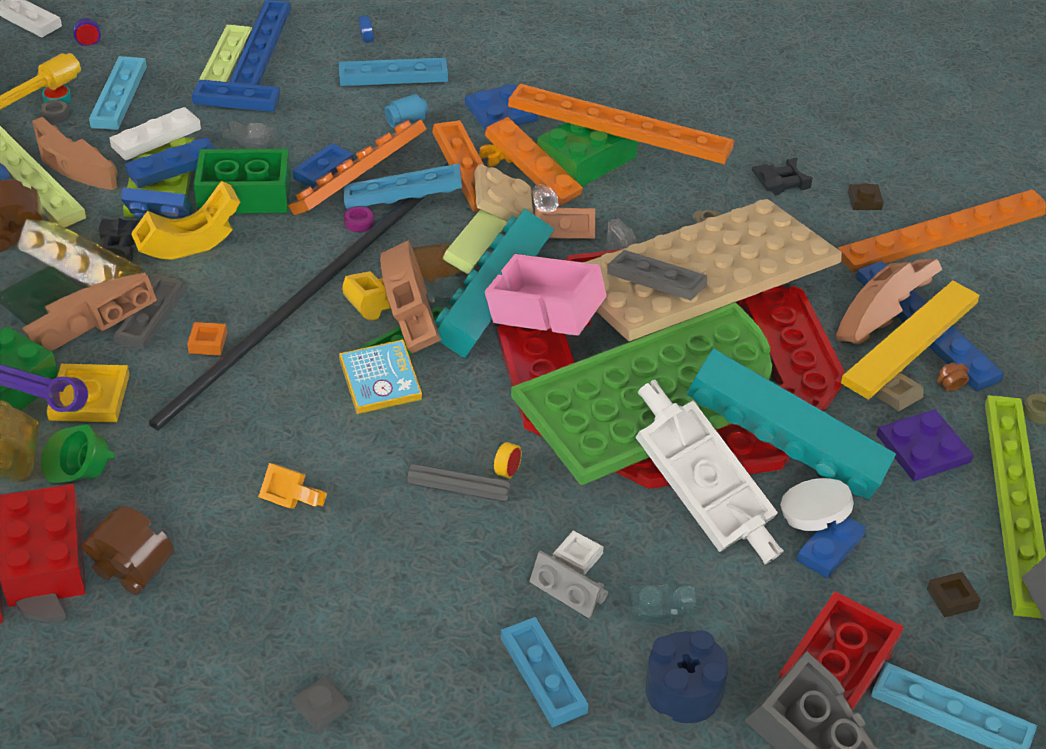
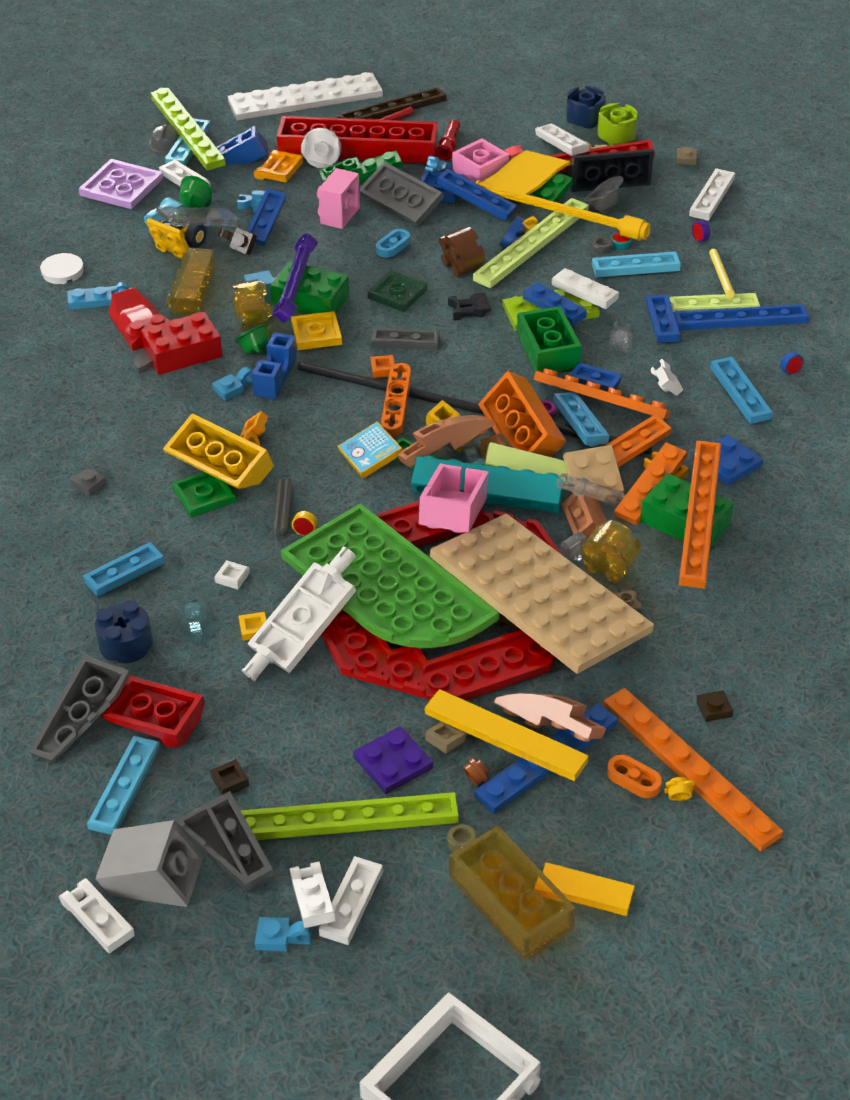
camera: 80 degrees right, 0 degrees up
(73, 253) = (434, 290): clear yellow brick -> none
(74, 159) = (550, 256): nougat slope -> none
(90, 308) = (384, 306): nougat slope -> none
(127, 549) = (178, 372): reddish brown brick -> none
(161, 203) = (495, 305): blue plate -> none
(164, 506) = (232, 386): none -> dark azure plate
(176, 37) = (721, 273): none -> light yellow bar
(186, 452) = (271, 374): none -> blue arch
(188, 235) = (481, 329): yellow arch -> none
(290, 332) = (393, 399): none -> orange beam
(340, 524) = (220, 453): none -> yellow slope
(354, 114) = (667, 379): none -> white plate
(367, 229) = (521, 416): none -> orange slope
(396, 565) = (203, 493): none -> green tile
(407, 108) = (687, 405): dark azure brick -> none
(567, 584) = (206, 563): light grey hinge -> none
(645, 205) = (610, 550): none -> clear yellow brick
(657, 274) = (499, 554): dark grey tile -> none
(683, 542) = (251, 624): none -> yellow tile
(782, 177) = (712, 634): black piece -> none
(791, 424) = (360, 655): teal brick -> none
(816, 503) = (300, 690): white tile -> none
(831, 546) = (270, 707): blue plate -> none
(962, 265) = (635, 776): none -> orange plate
(981, 239) = (679, 788): none -> yellow plate

